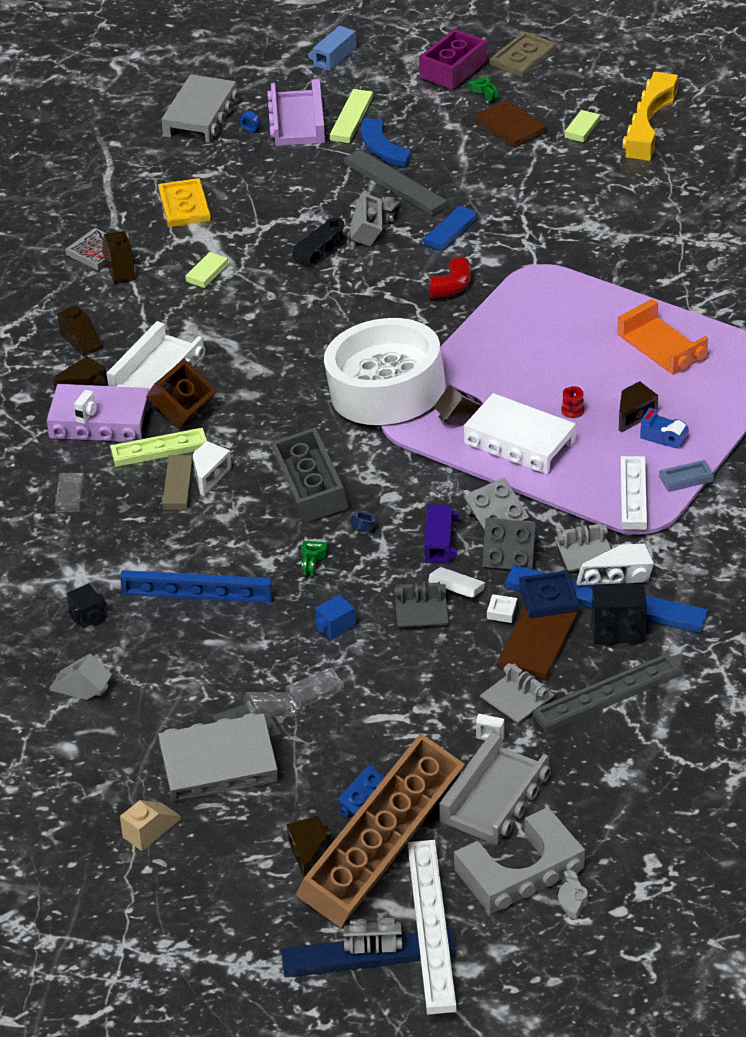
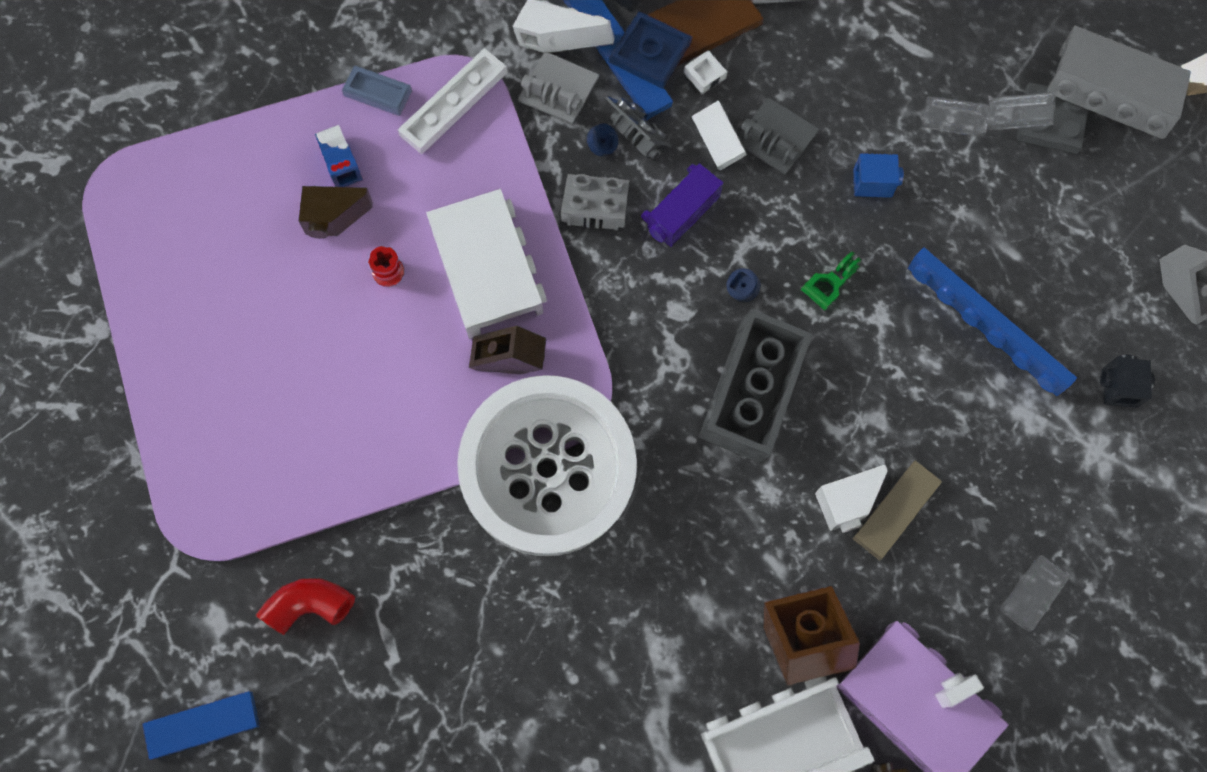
camera: 145 degrees left, 30 degrees up
(157, 447) = (879, 591): yellowish green tile -> none
(658, 339) = (194, 288): orange panel -> none

